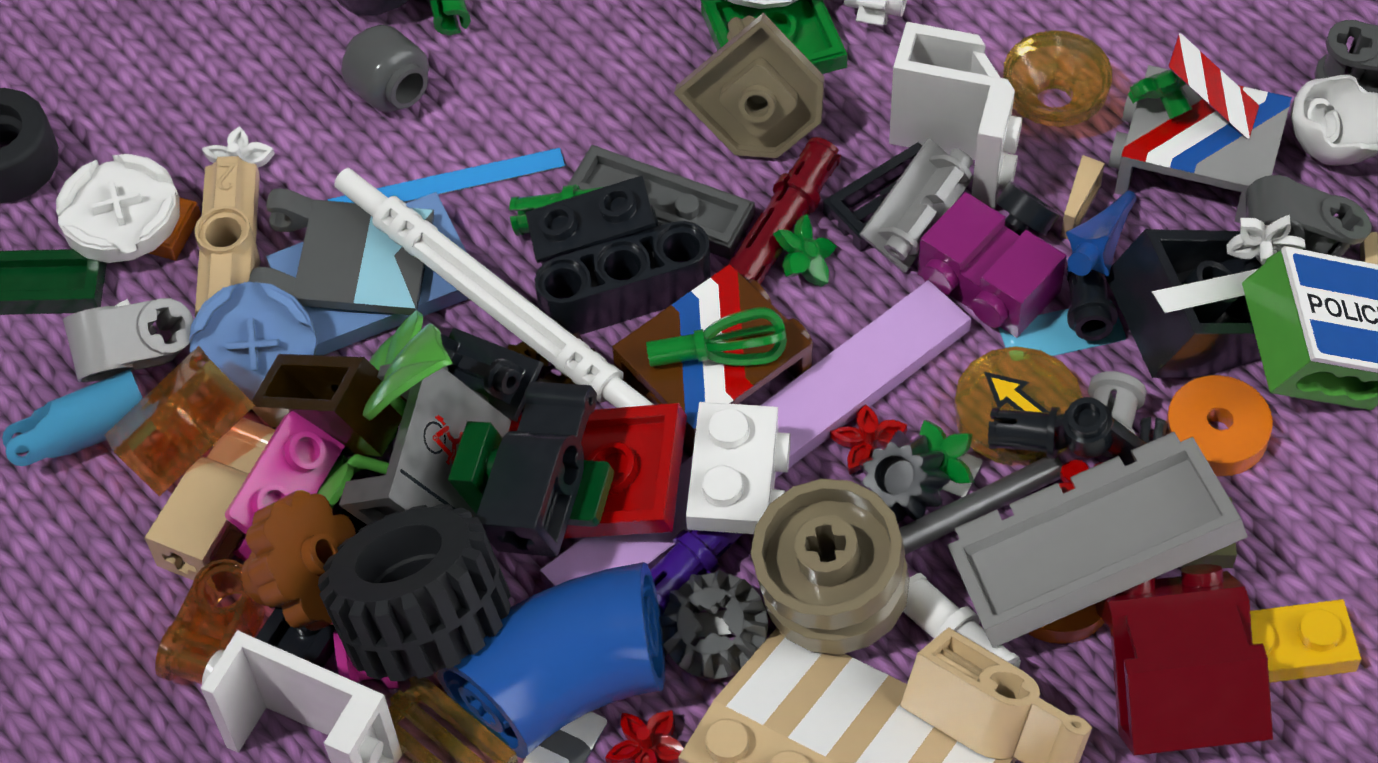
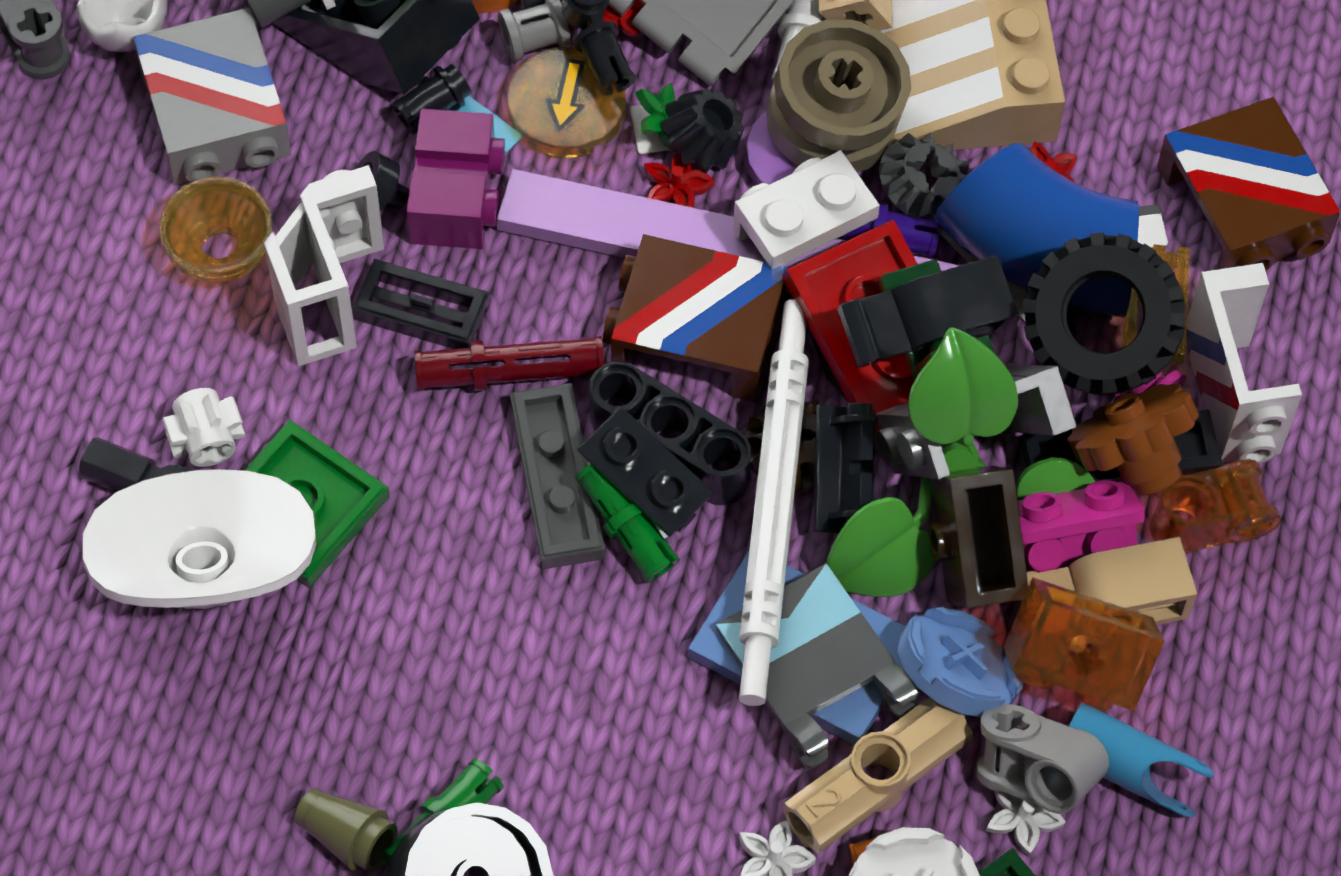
camera: 130 degrees left, 5 degrees up
(385, 68) = (592, 779): dark grey head -> none
(472, 176) = (661, 669): dark azure sticker -> none
(709, 344) = (715, 296): green piece -> none
(756, 90) = (405, 433): dark tan piece -> none
(805, 254) = (537, 321): green plant -> none
(917, 202) = (405, 247): light grey hinge -> none
(980, 503) = (662, 75): flat silver bar -> none
(1083, 192) = (316, 162): tan piece -> none
(1097, 239) = (387, 100): blue piece -> none
(1166, 87) = (197, 109): green plant -> none
(1213, 86) = (188, 62): sticker -> none

